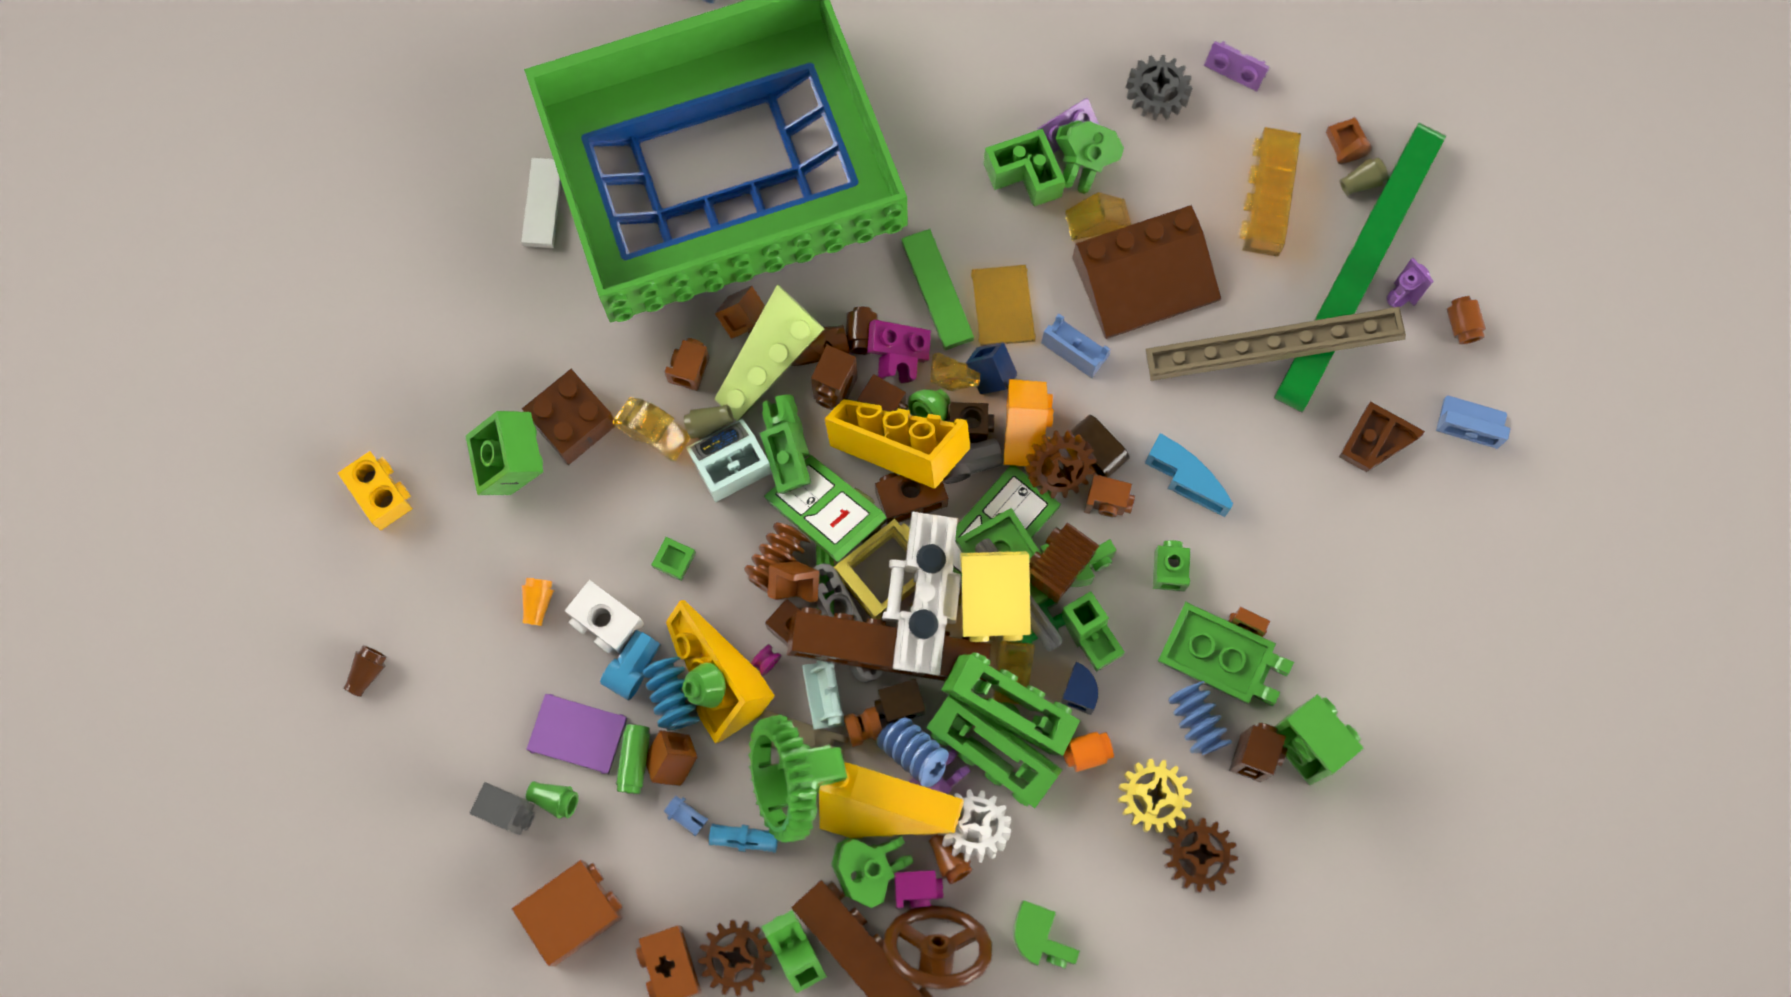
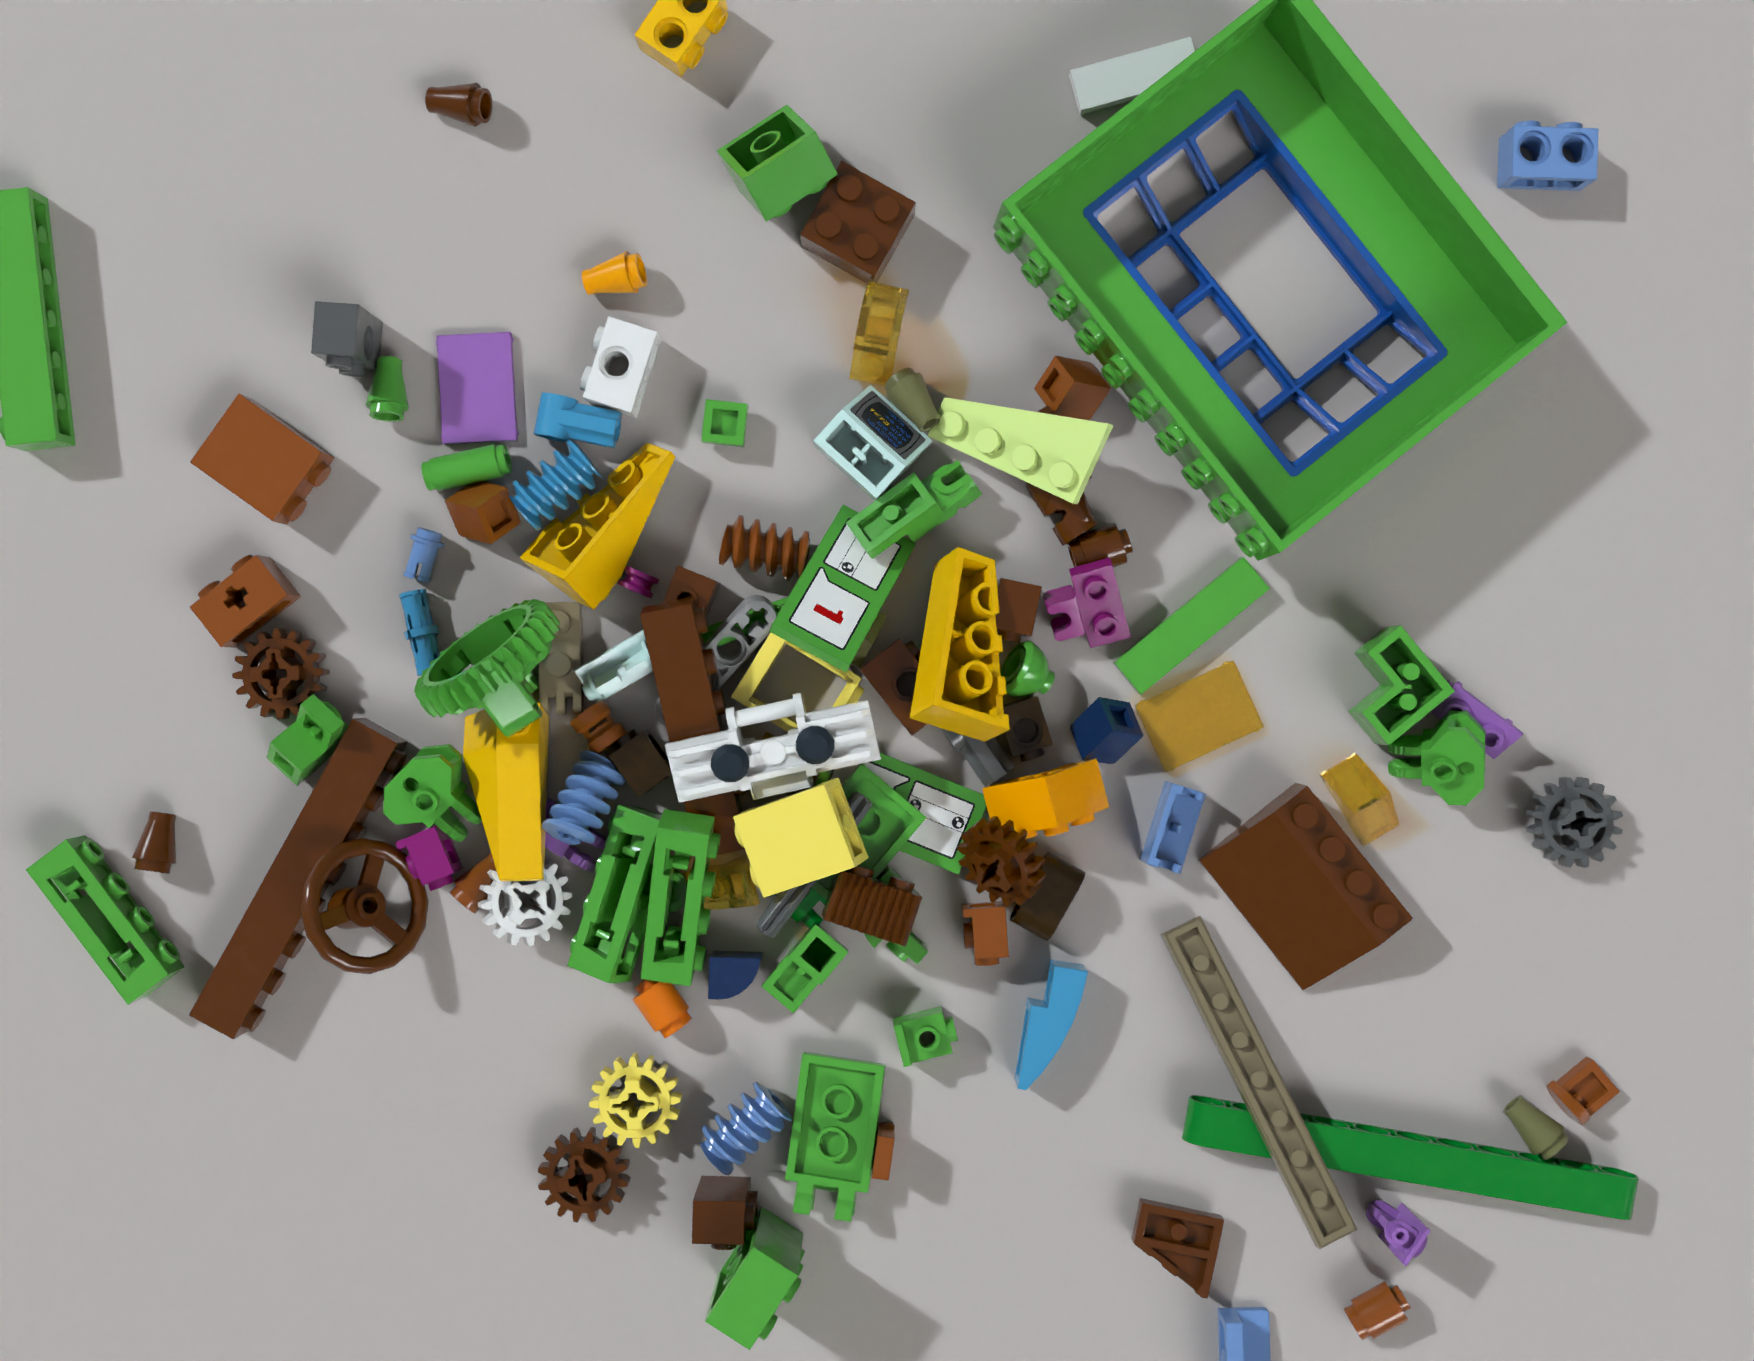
camera: 70 degrees right, 15 degrees up
(688, 364) = (980, 347): dark orange brick -> none
(705, 685) = (572, 522): bright green cone -> none
(793, 580) = (741, 579): dark orange panel -> none
(833, 377) = (1018, 538): reddish brown brick -> none
(952, 374) = (1077, 679): clear yellow bracket -> none
(1031, 935) = (426, 1007): bright green brick -> none
(1236, 66) = (1639, 924): medium lavender hinge -> none
(1271, 191) = (1473, 1012): clear yellow brick -> none

